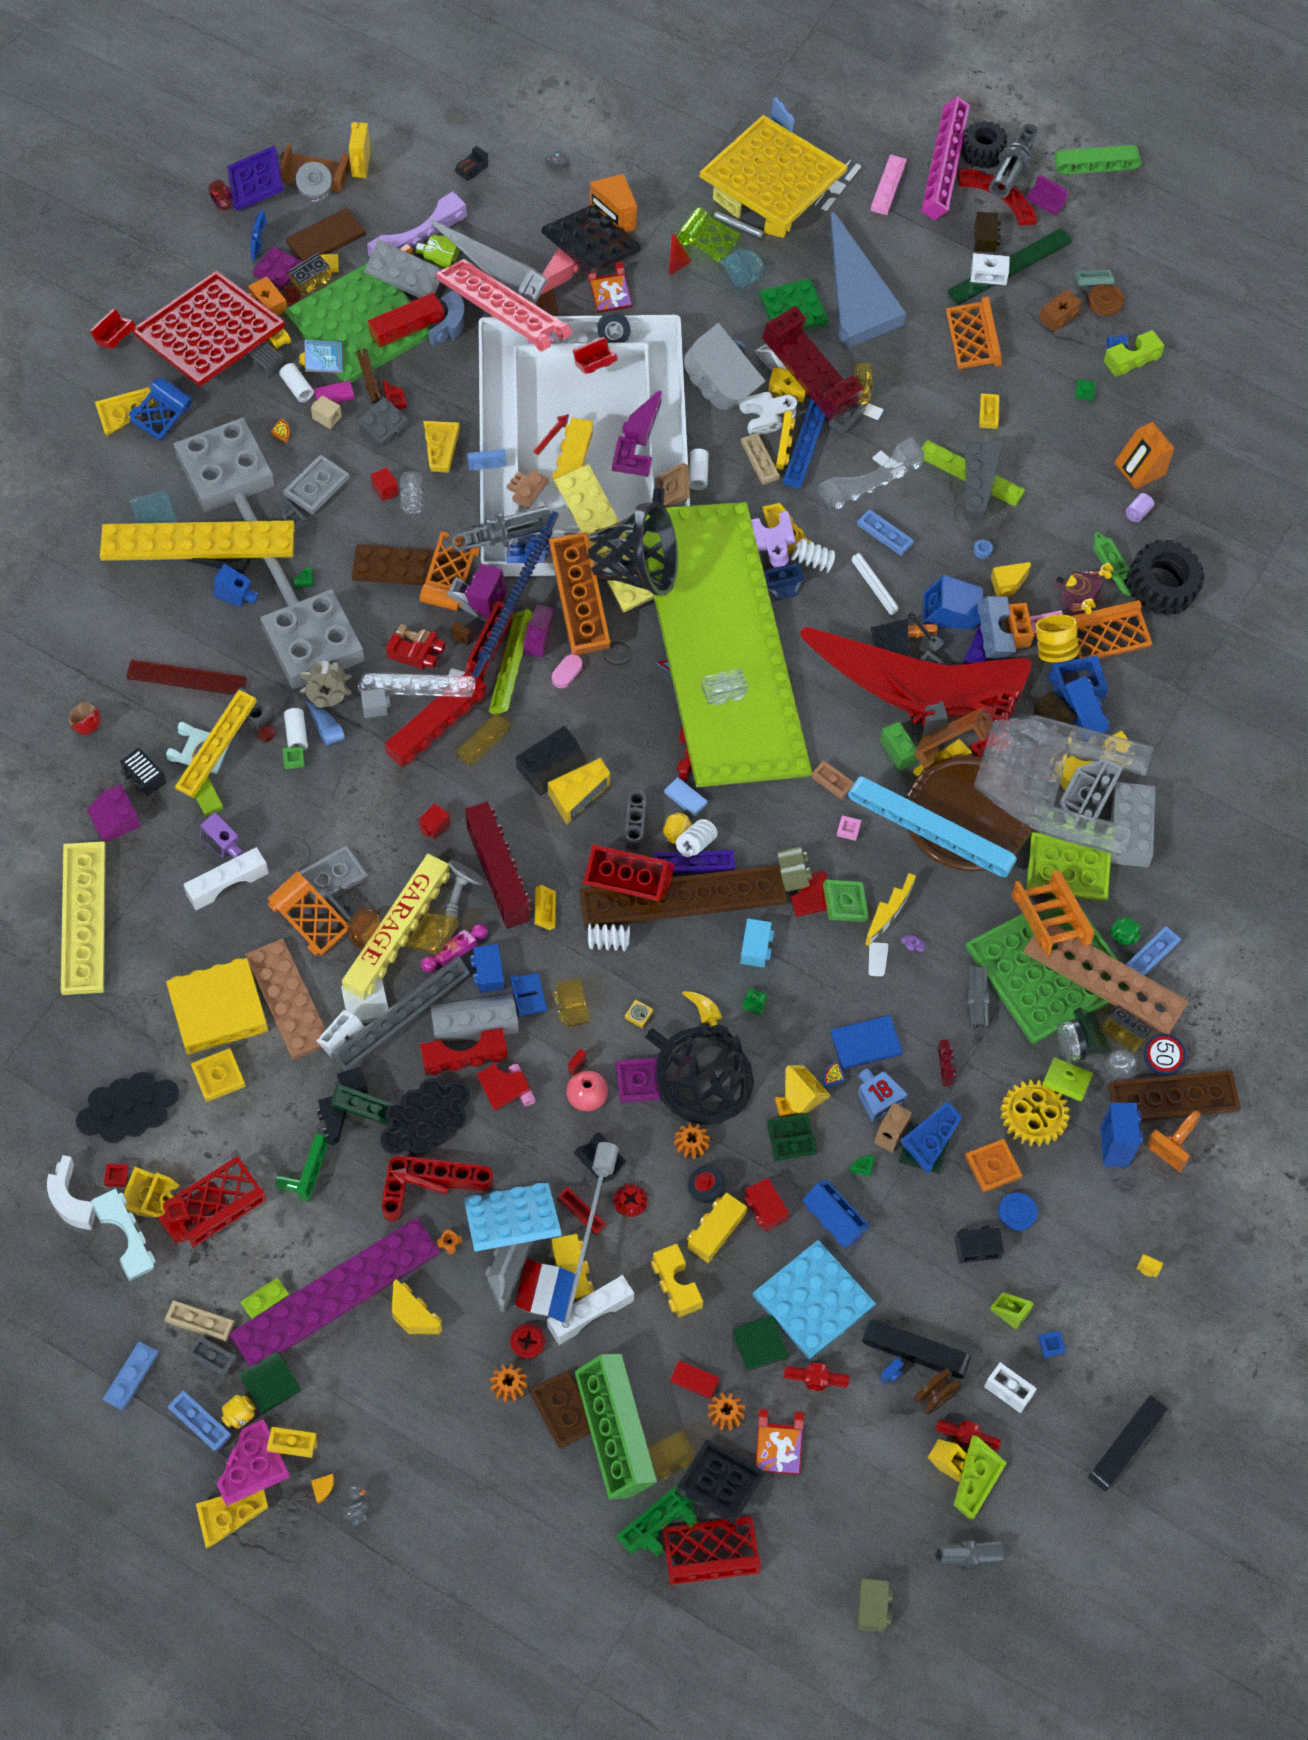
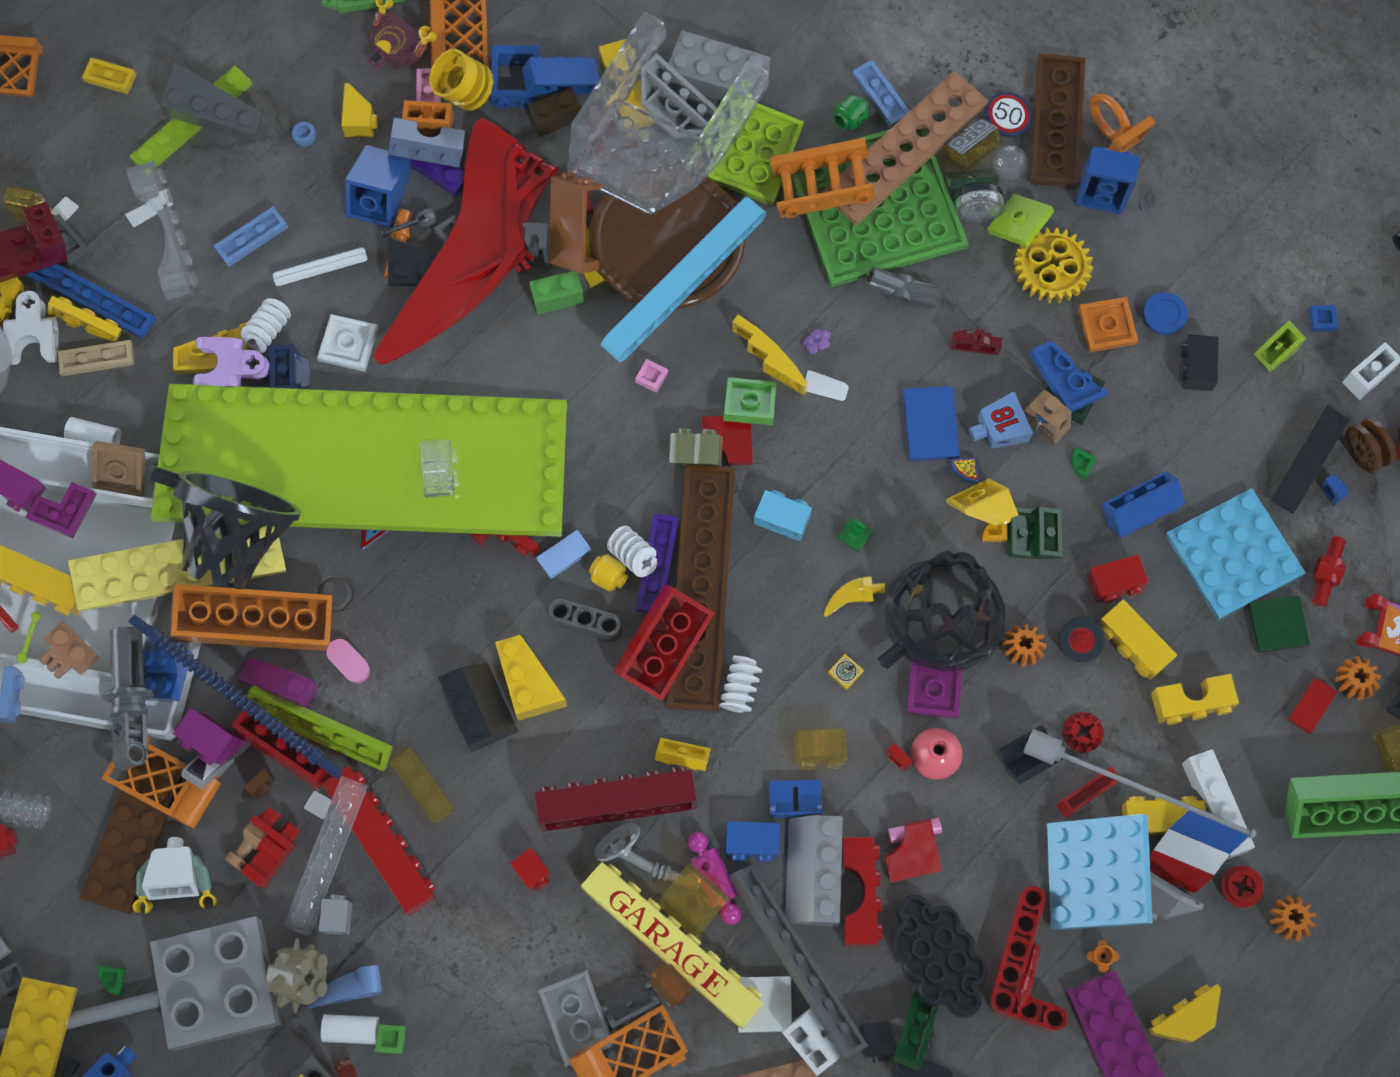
camera: 75 degrees left, 10 degrees up
(383, 594) = (172, 874): none -> white torso
(516, 462) = (22, 657): none -> lime hinge
(561, 1409) = (1327, 863): reddish brown tile -> none
(819, 614) = (347, 342): none -> white tile
(832, 779) = (582, 378): nougat plate -> none
(1149, 1266) = (1251, 197): yellow plate -> none

